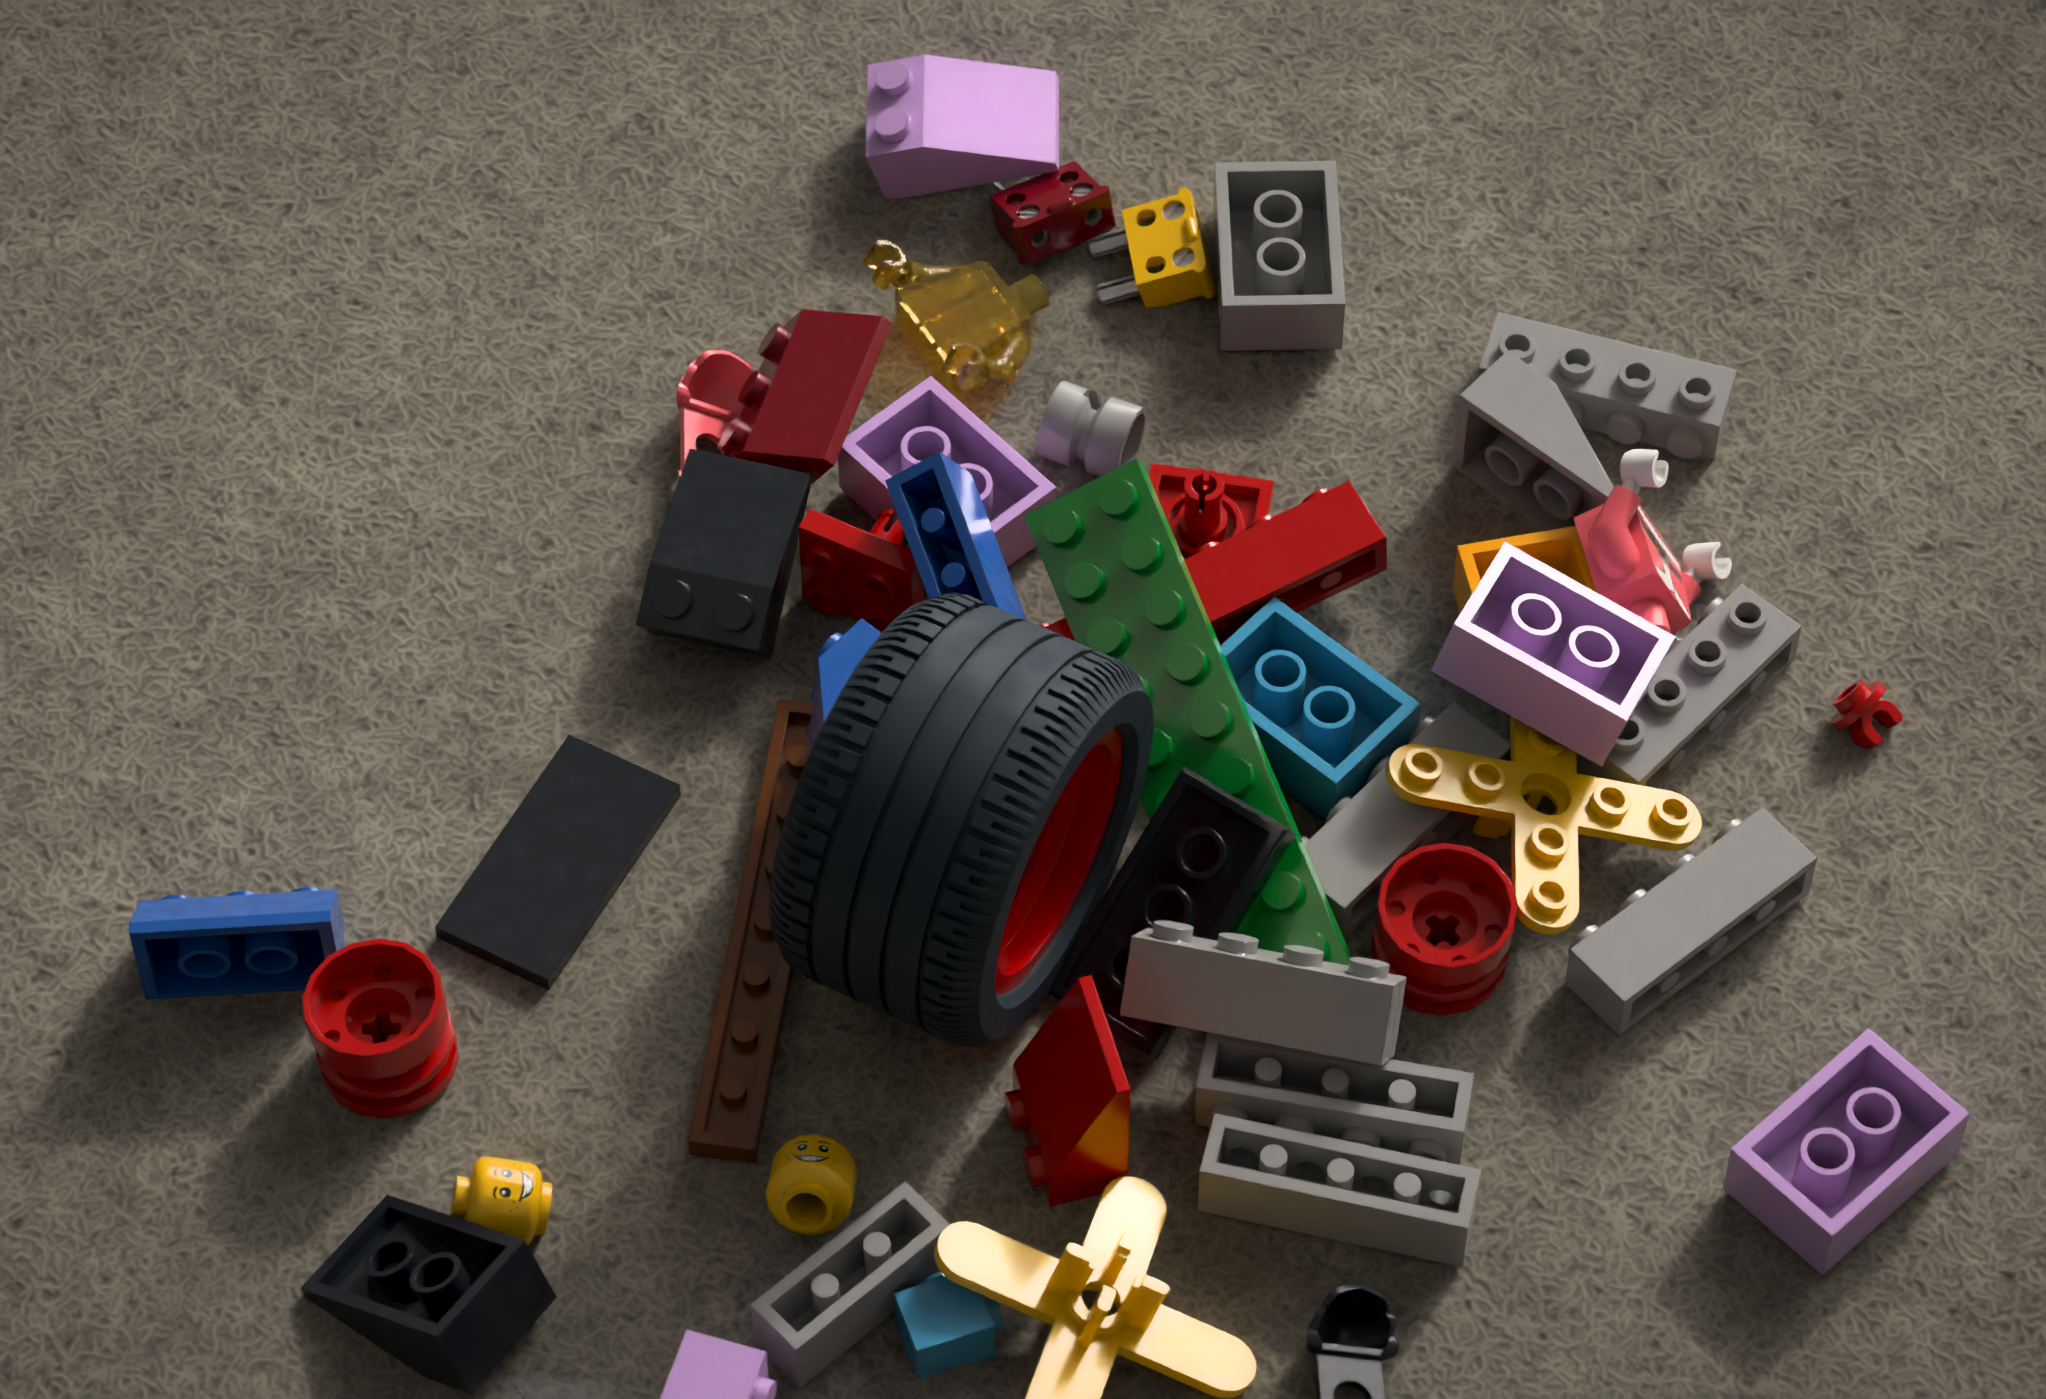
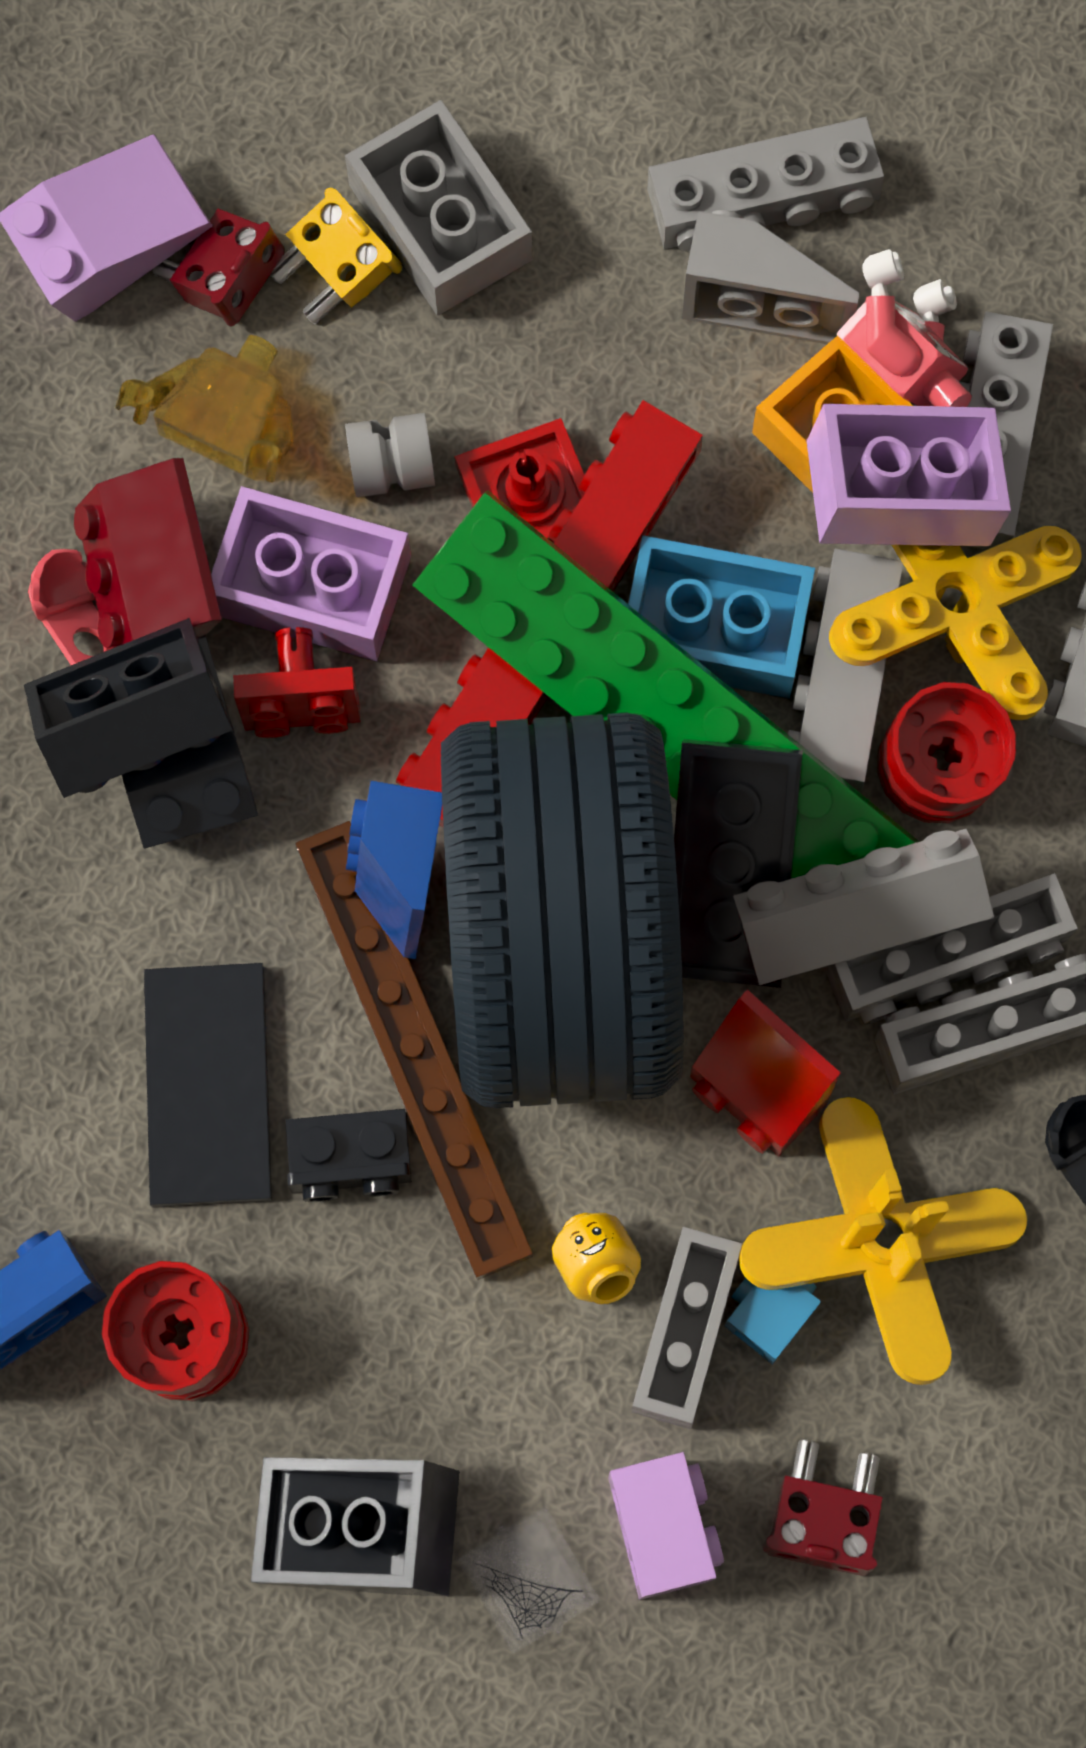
camera: 30 degrees left, 20 degrees up
(504, 1197) = (365, 1417): yellow head -> none
(645, 983) = (348, 1153): none -> black bracket
(694, 487) = (126, 709): none -> black slope
(951, 533) = (384, 655): blue brick -> none

